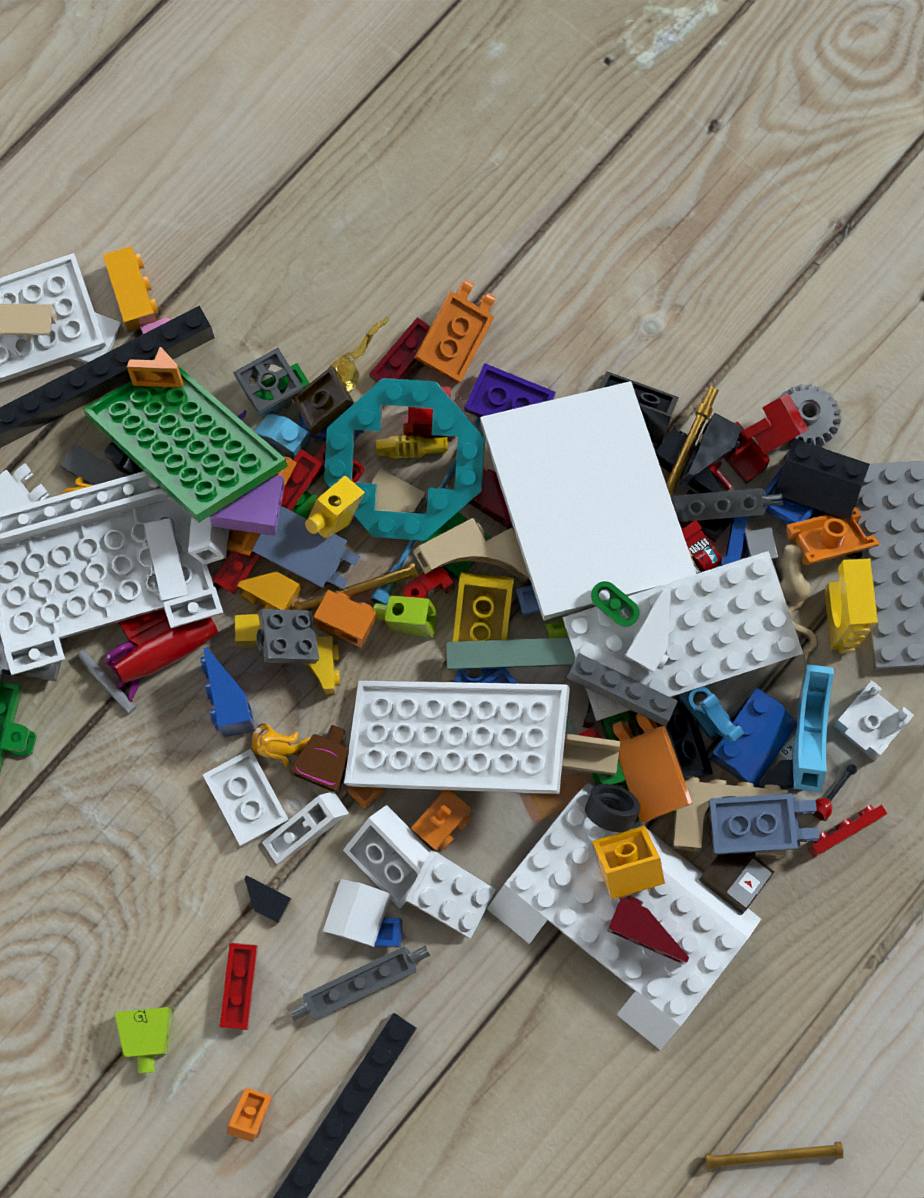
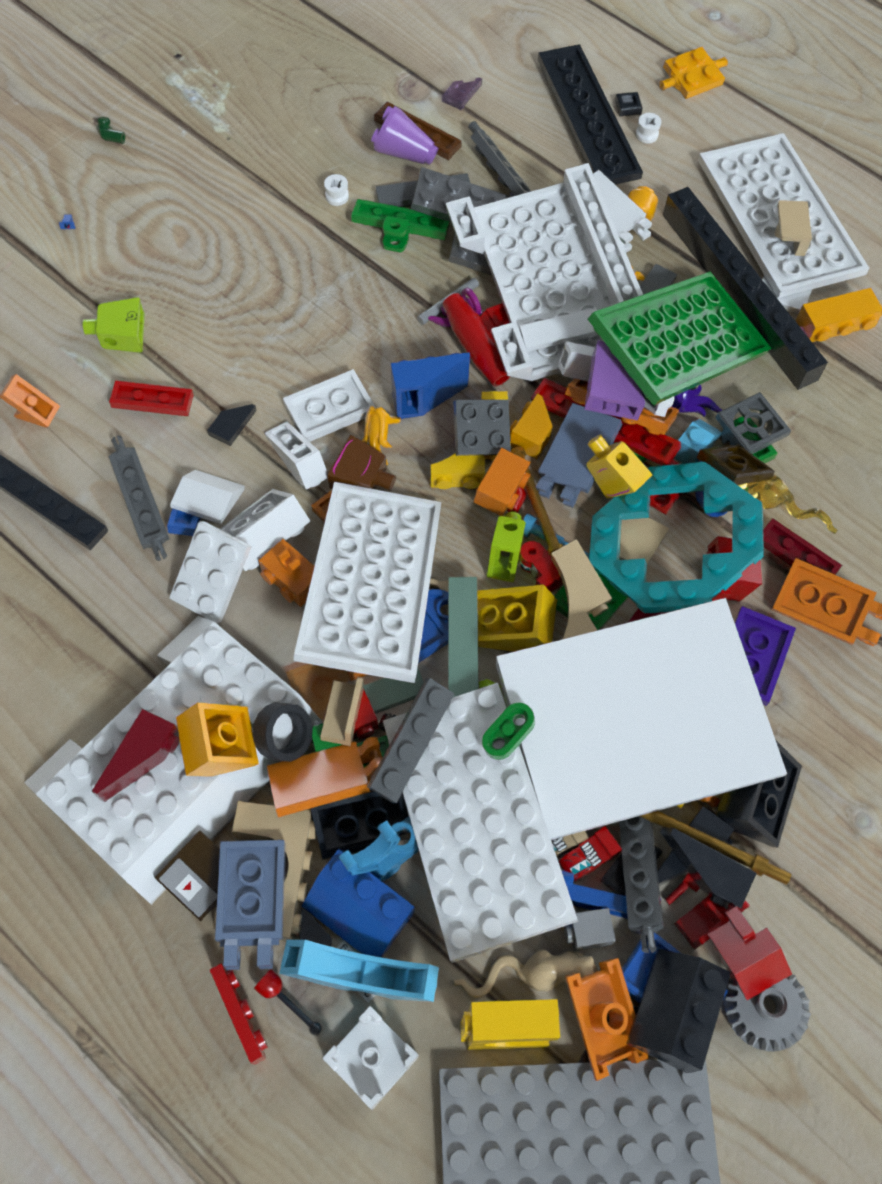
camera: 90 degrees right, 10 degrees down
(157, 372) = (753, 326): orange slope -> none
(410, 446) = (692, 550): yellow hinge -> none
(652, 638) = (469, 772): white slope -> none

